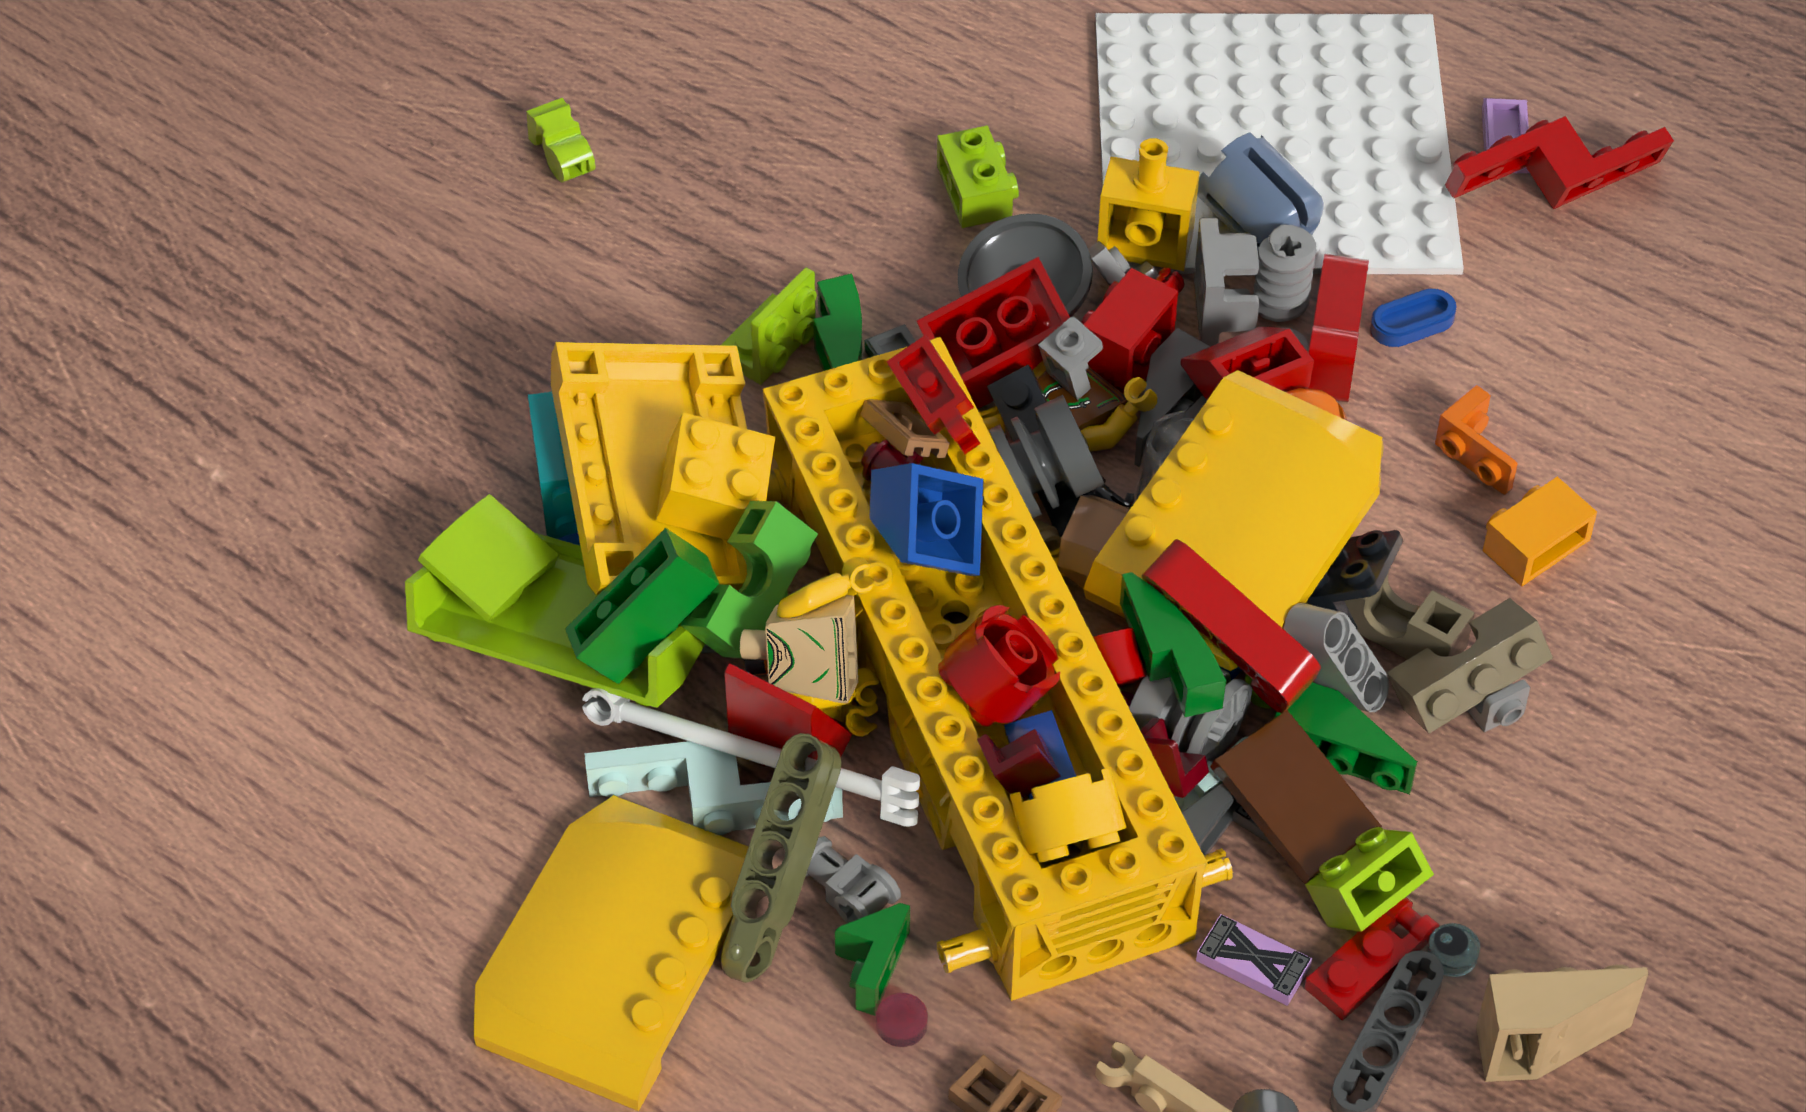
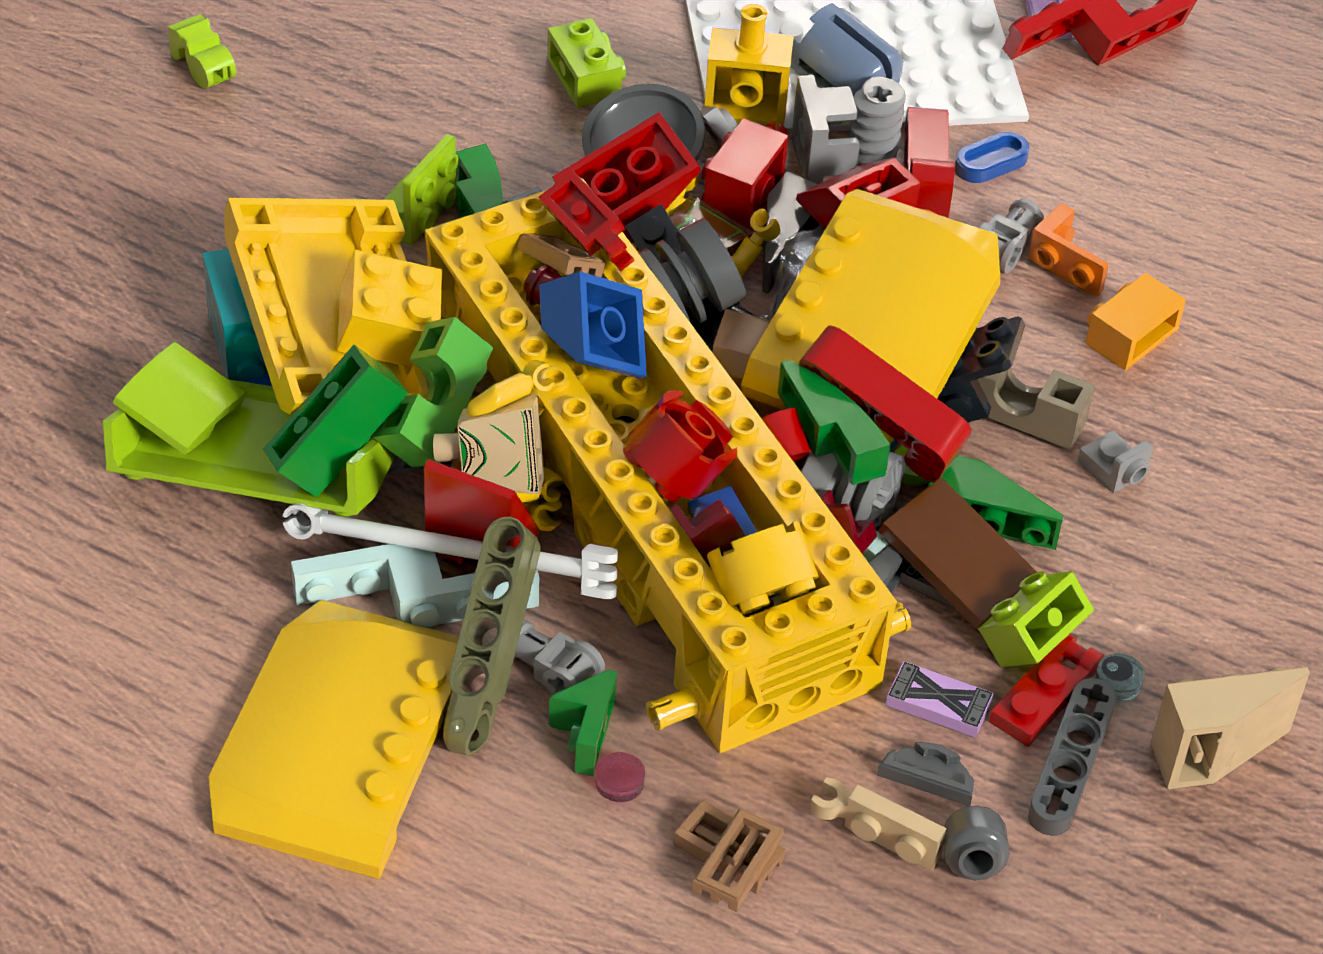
camera: 10 degrees left, 5 degrees down
(1068, 354) = (696, 192): light grey bracket -> none
(1231, 1038) = (929, 769): none -> dark grey tile
(1341, 652) = (992, 434): light grey beam -> none
(1412, 420) = (1014, 231): none -> light grey connector
(1442, 688) = (1073, 453): dark tan arch -> none

